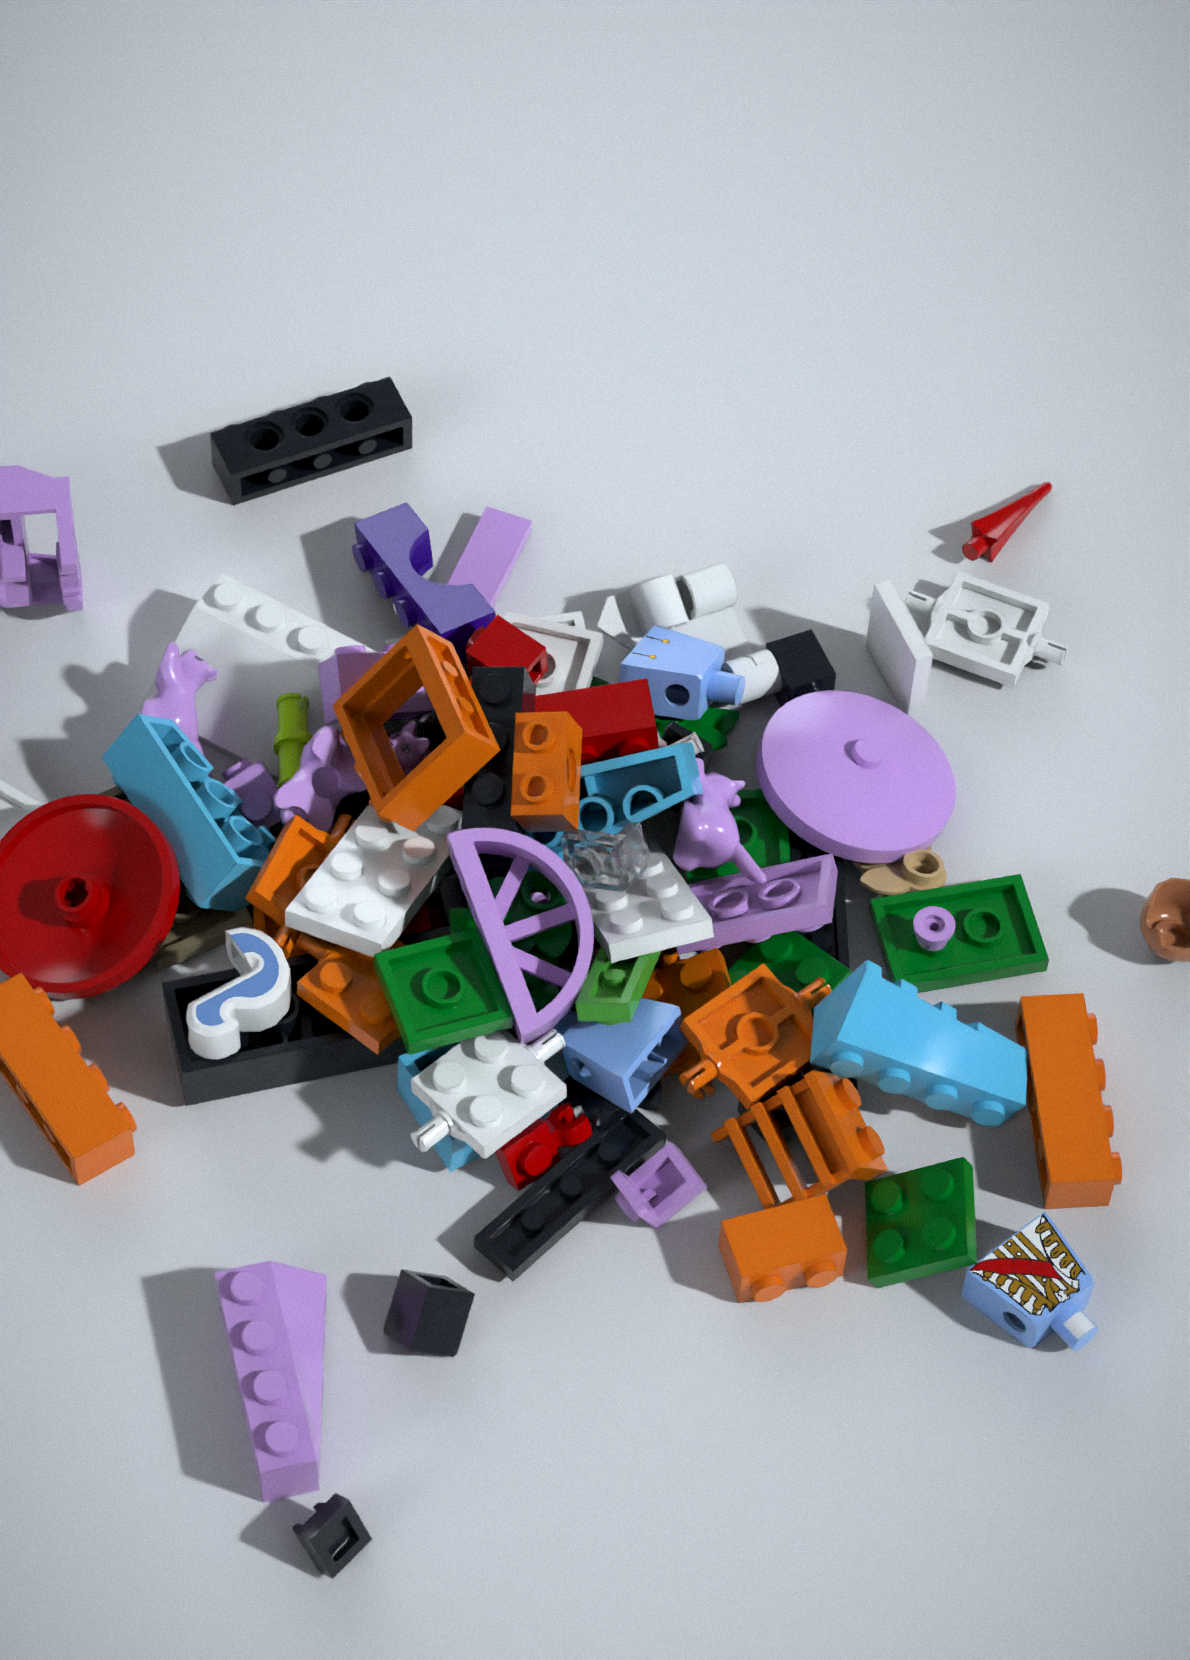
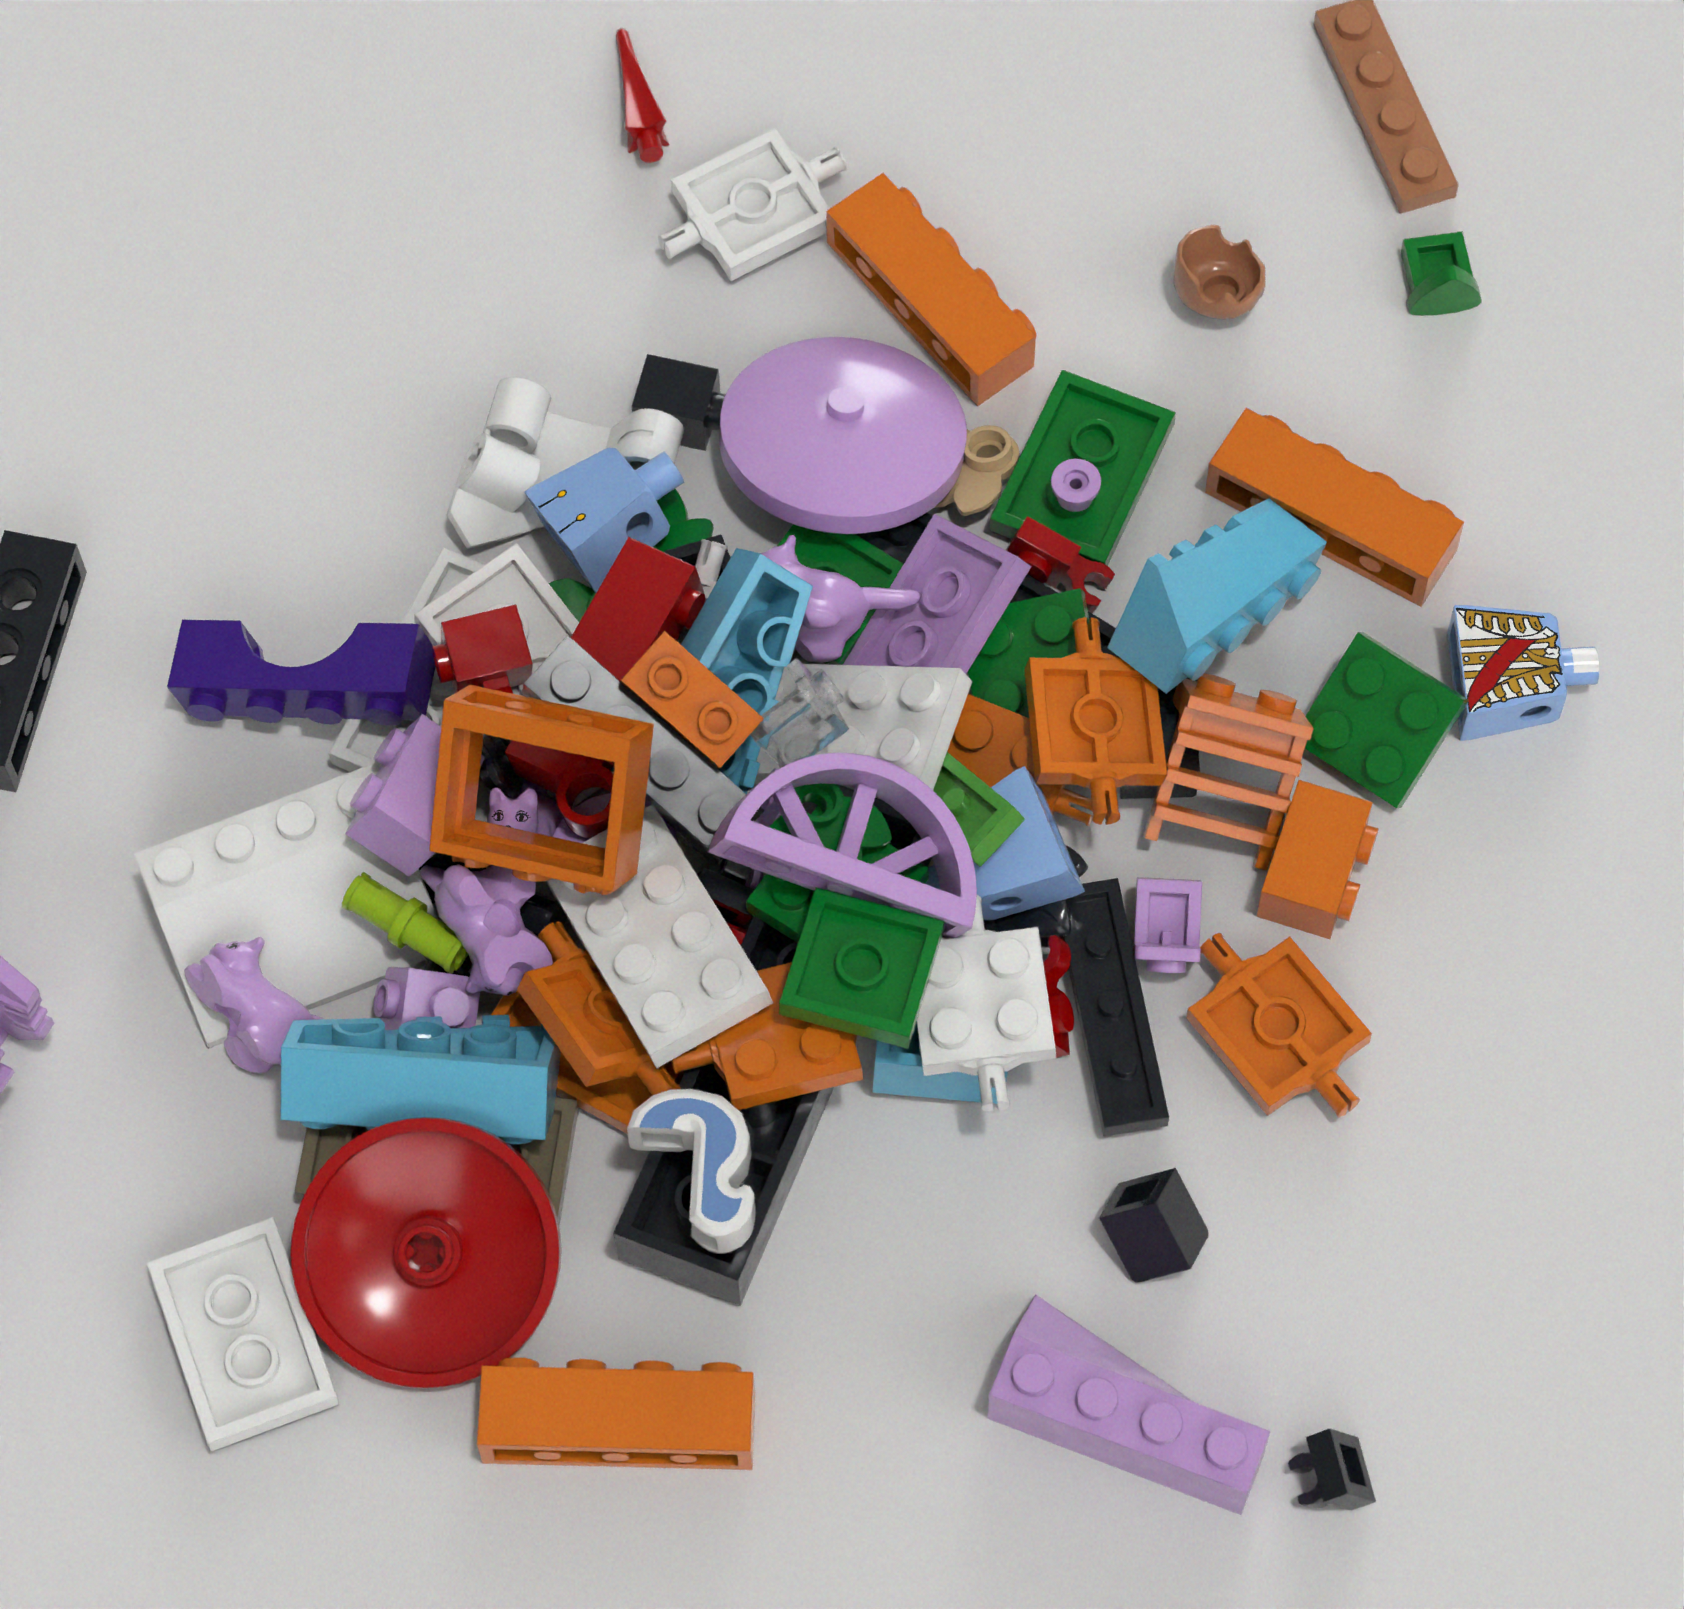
camera: 50 degrees left, 10 degrees up
(491, 553) = (296, 592): lavender tile -> none
(639, 1302) = (1278, 1025): none -> orange plate
(869, 941) = (1057, 560): none -> red plate
(899, 649) = (734, 293): white tile -> none
(1013, 765) = (932, 288): none -> orange brick

